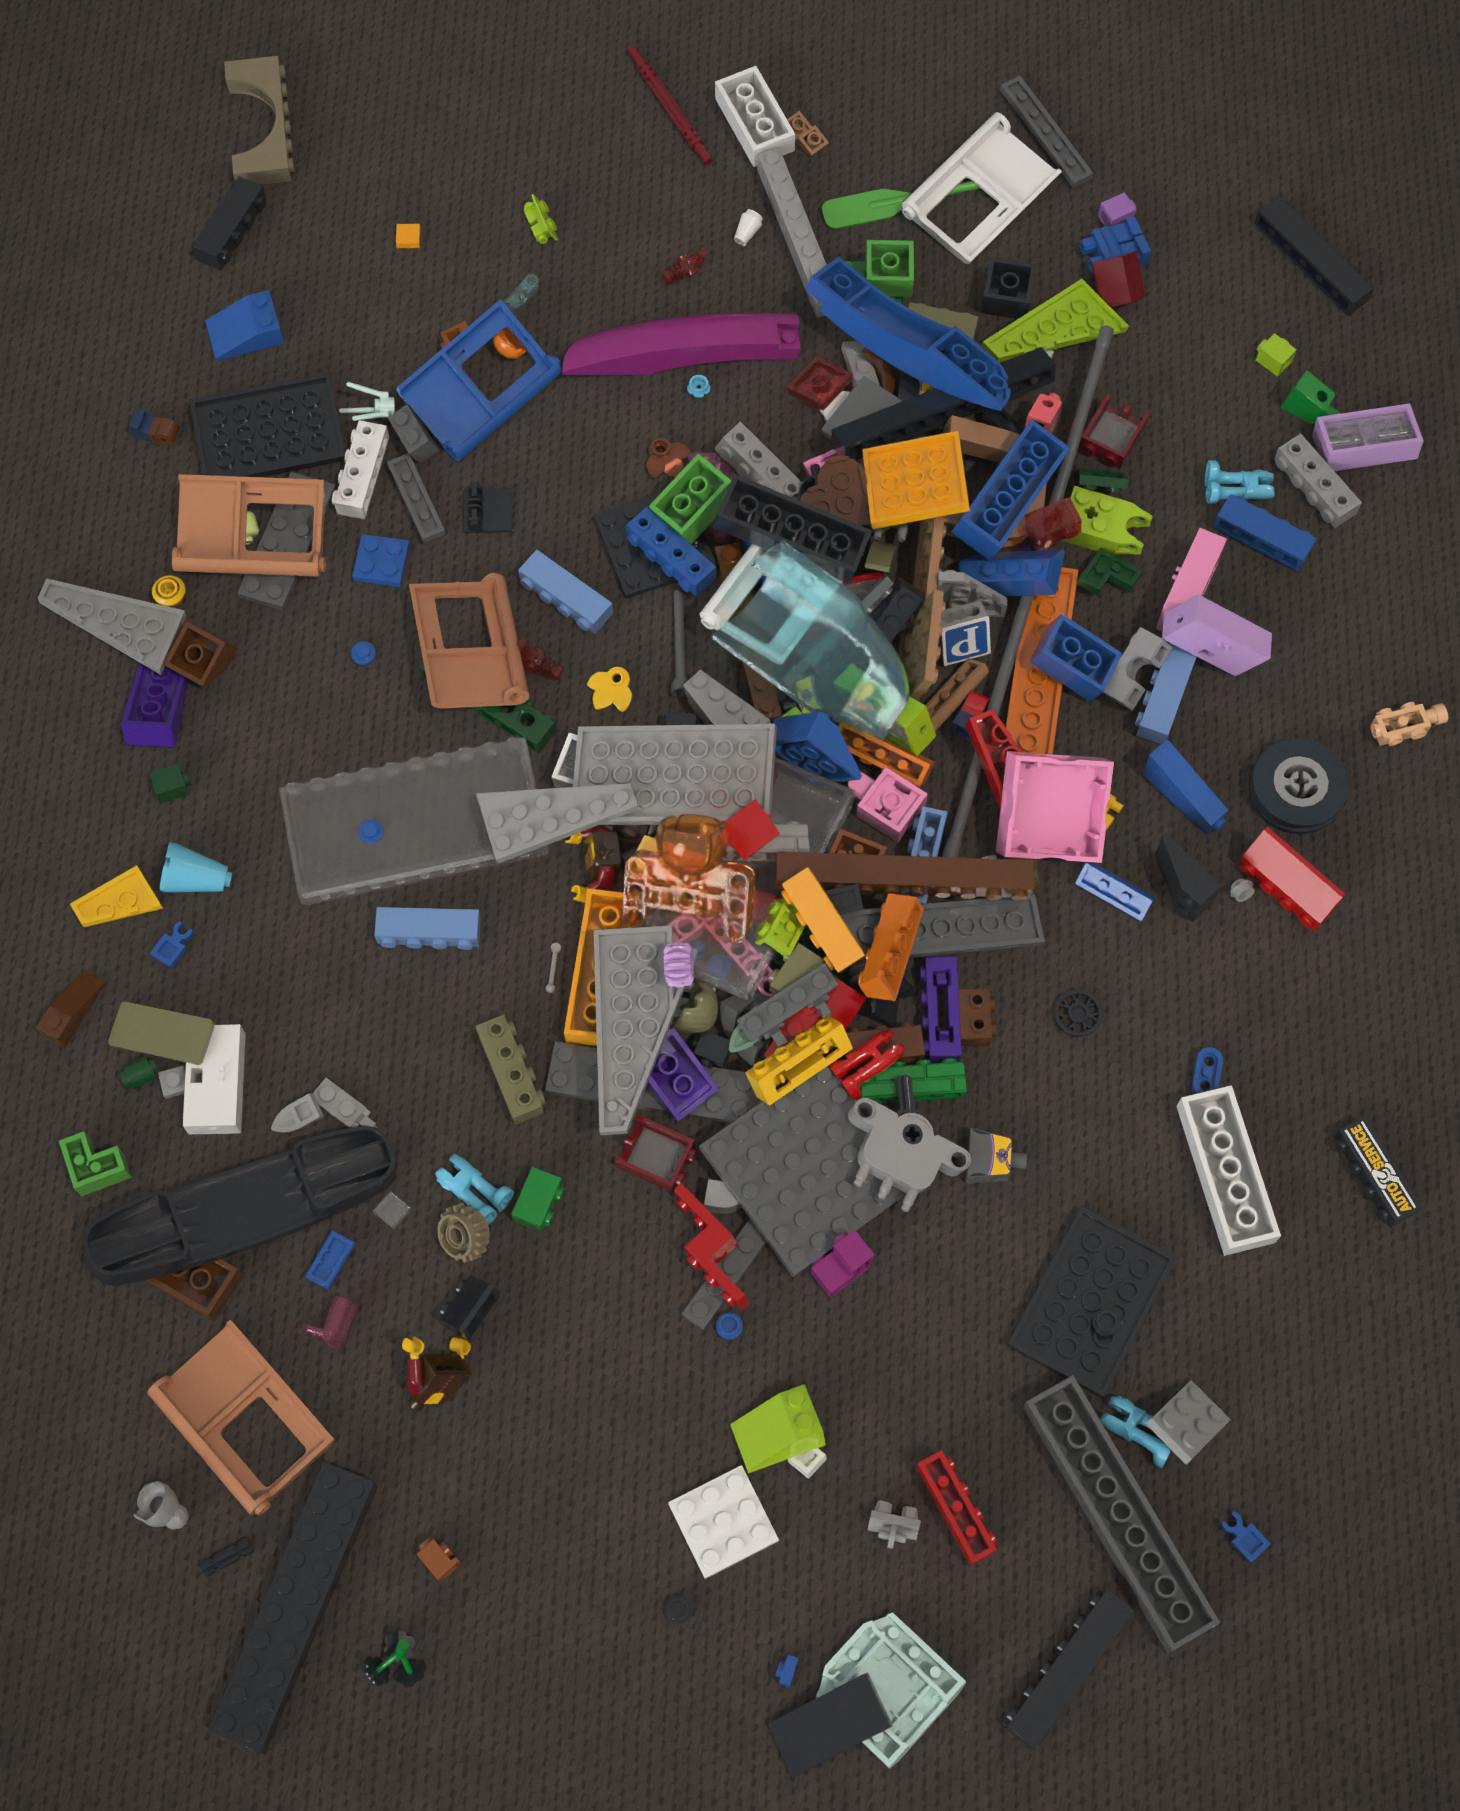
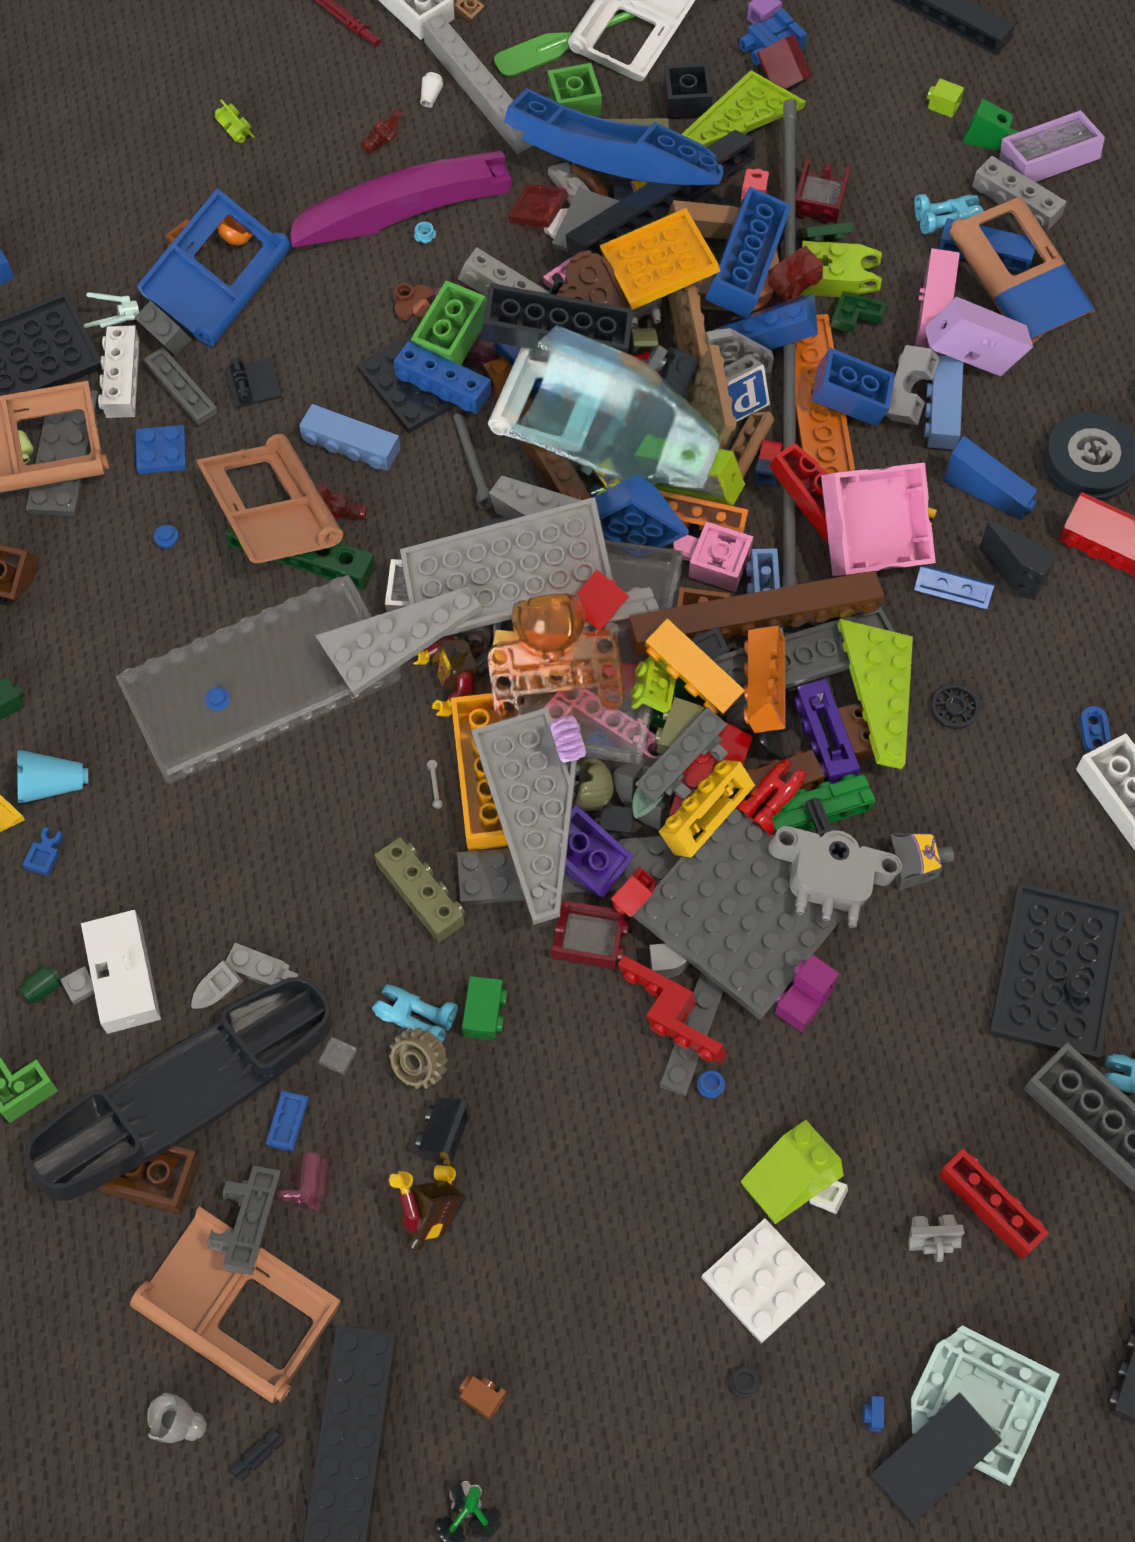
camera: 15 degrees left, 5 degrees down
(161, 1033) = (54, 938): olive piece -> none
(282, 1328) = (255, 1201): none -> dark grey hinge
(408, 236) = (110, 161): light orange tile -> none
(427, 927) = (299, 774): medium blue brick -> none
(522, 293) = (236, 184): clear light blue bar -> none
(610, 692) = (416, 517): yellow plate -> none
(707, 1124) = (634, 892): none -> brick
(1009, 970) = (882, 682): none -> lime wing
(1242, 890) = (1071, 559): light grey plate -> none
(1297, 602) = (1038, 297): none -> piece

